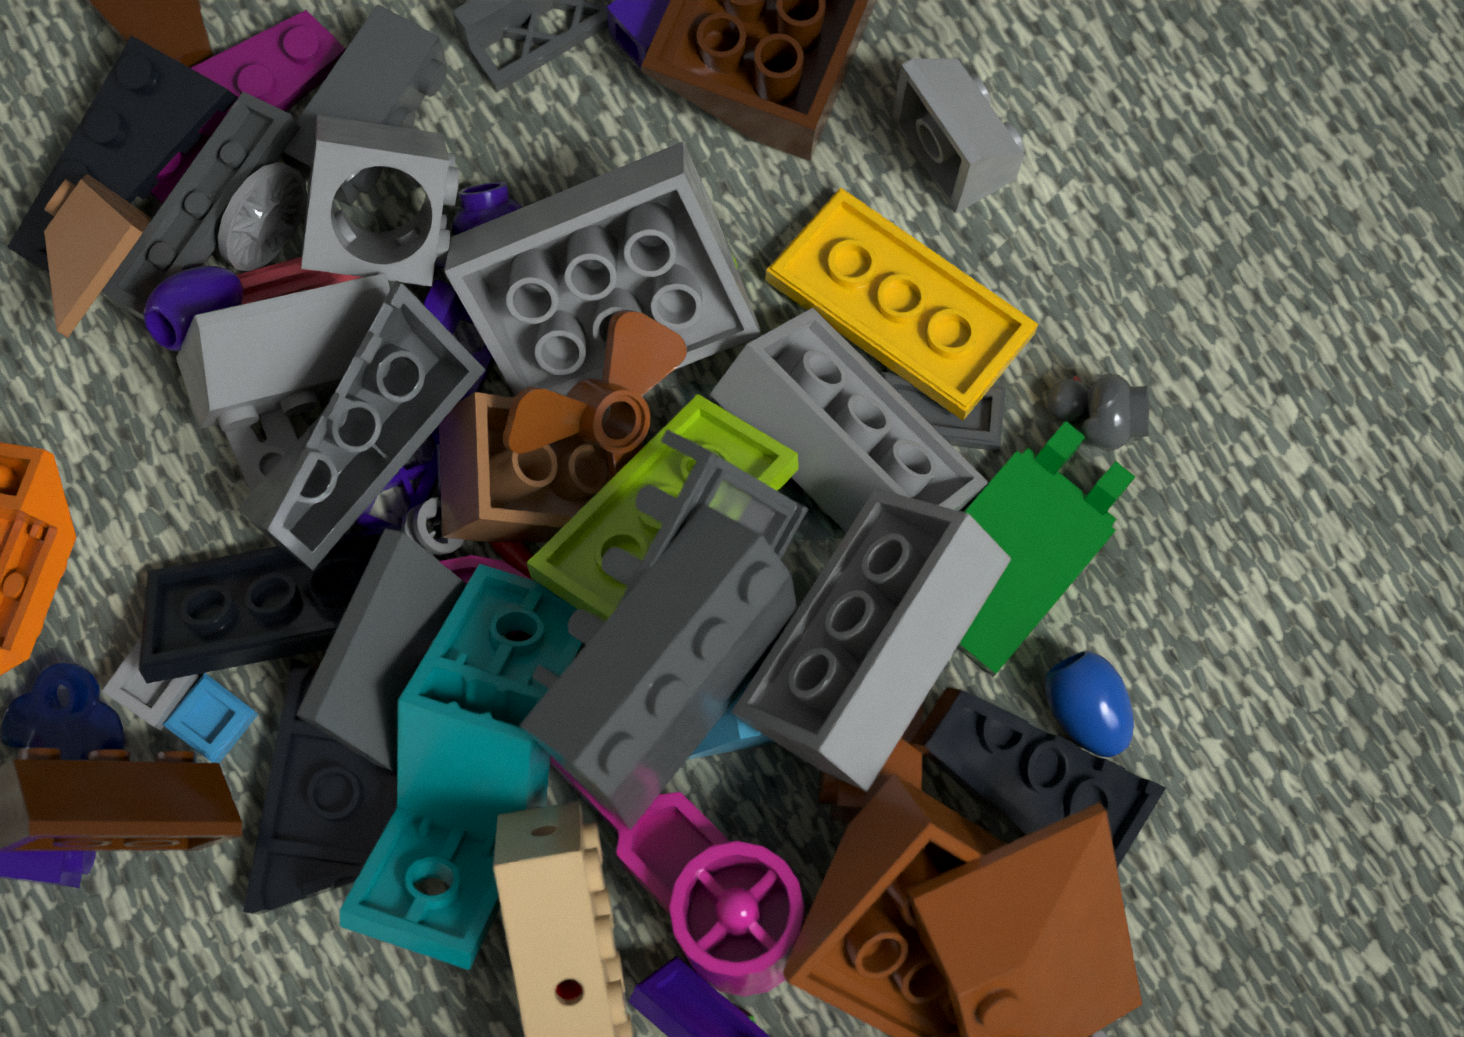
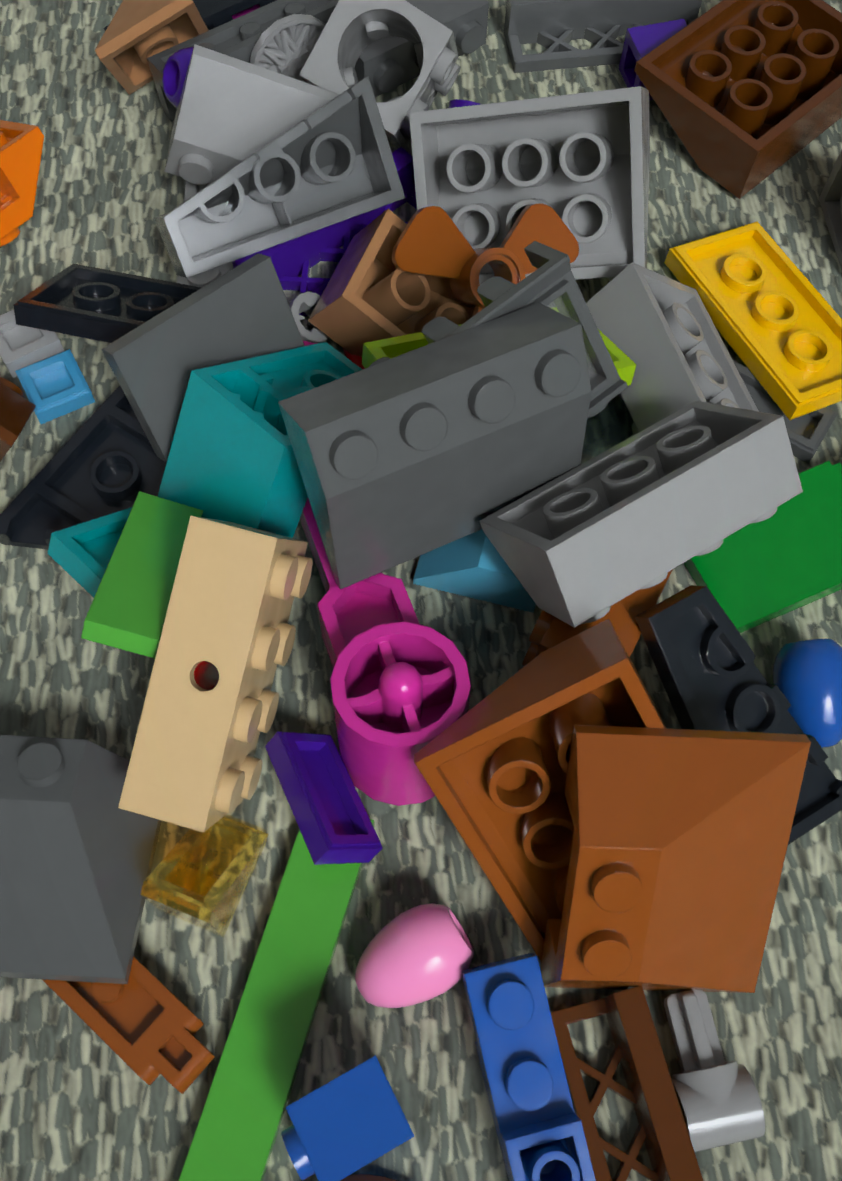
camera: 25 degrees right, 10 degrees down
(450, 908) = (140, 577): none -> bright green tile

